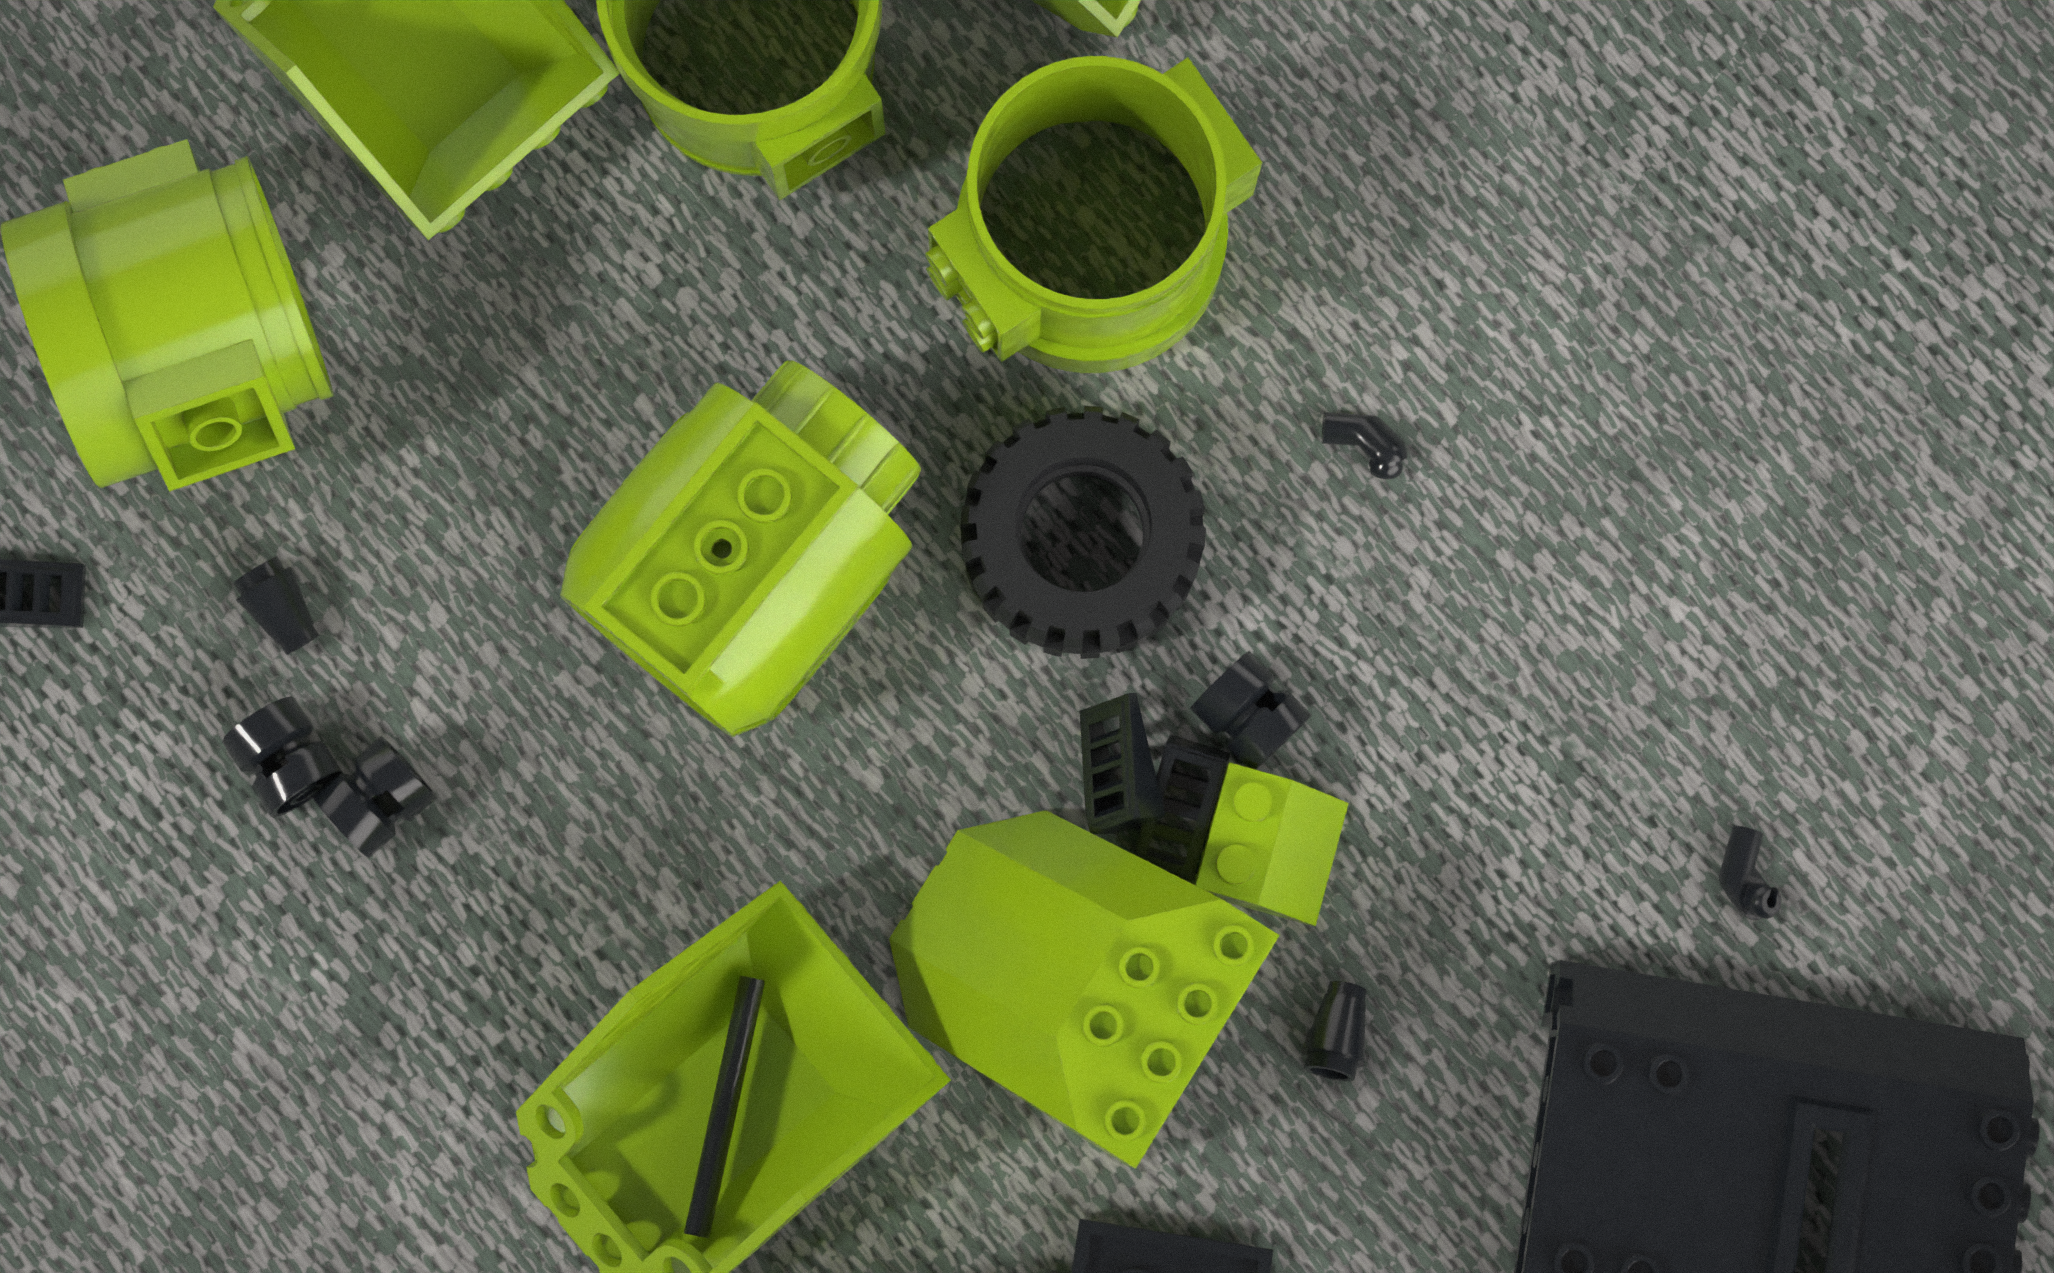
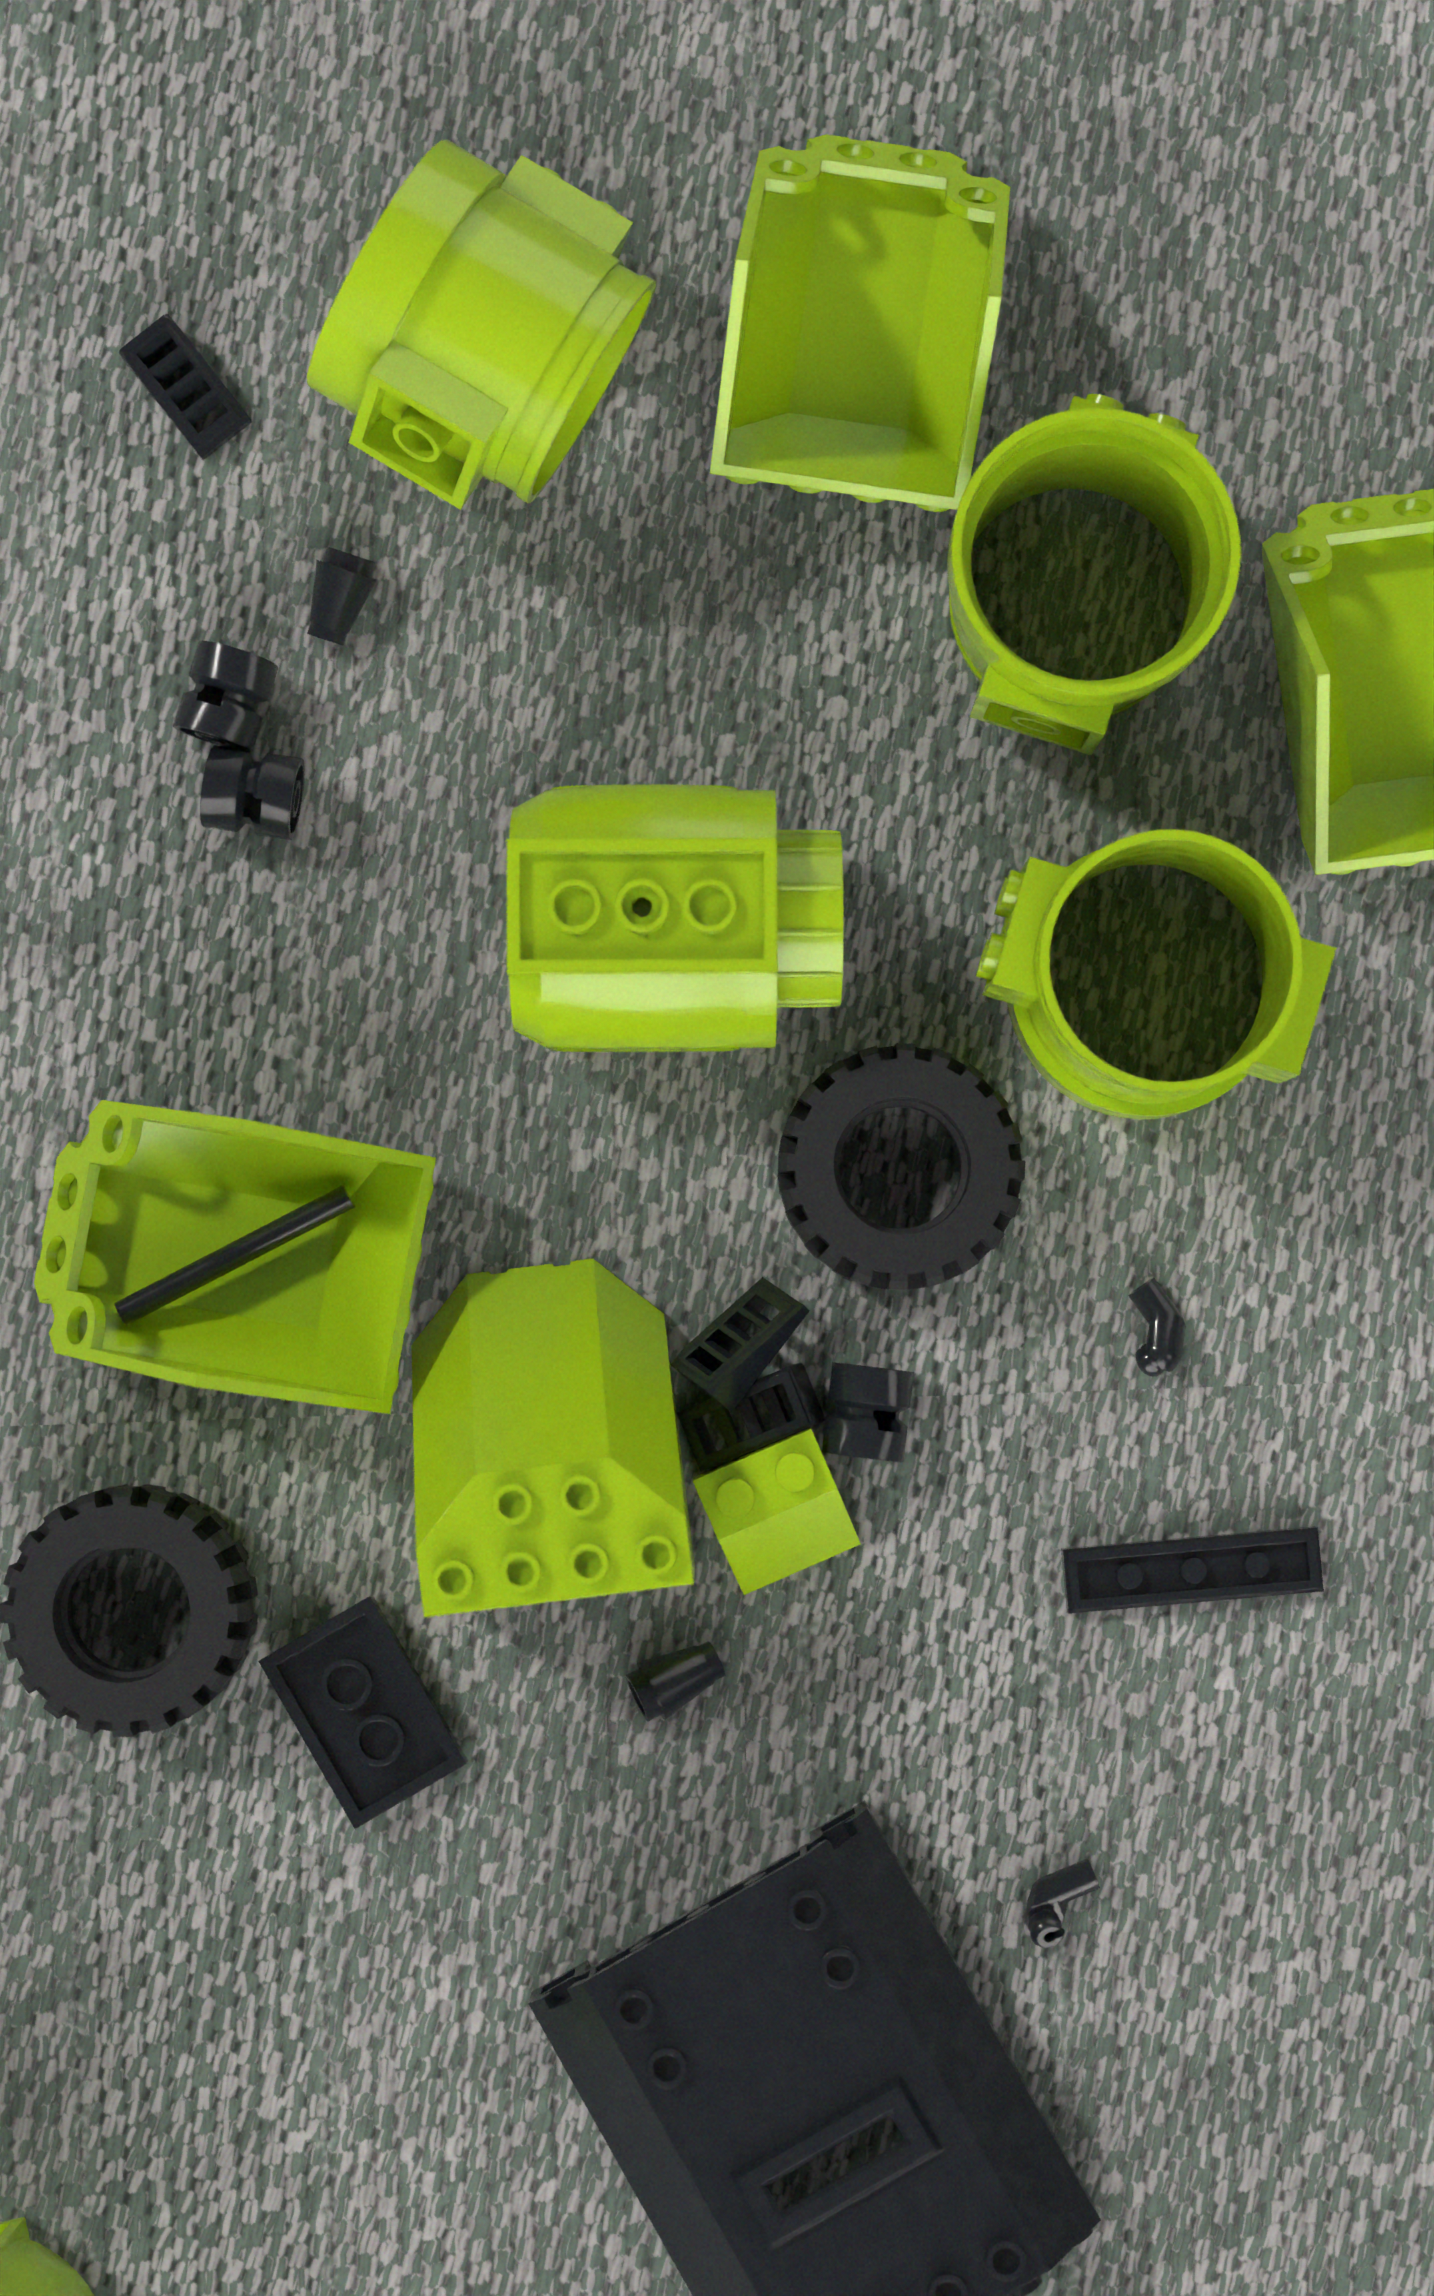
camera: 55 degrees right, 5 degrees up
(1572, 565) = (1192, 1569): none -> black tile

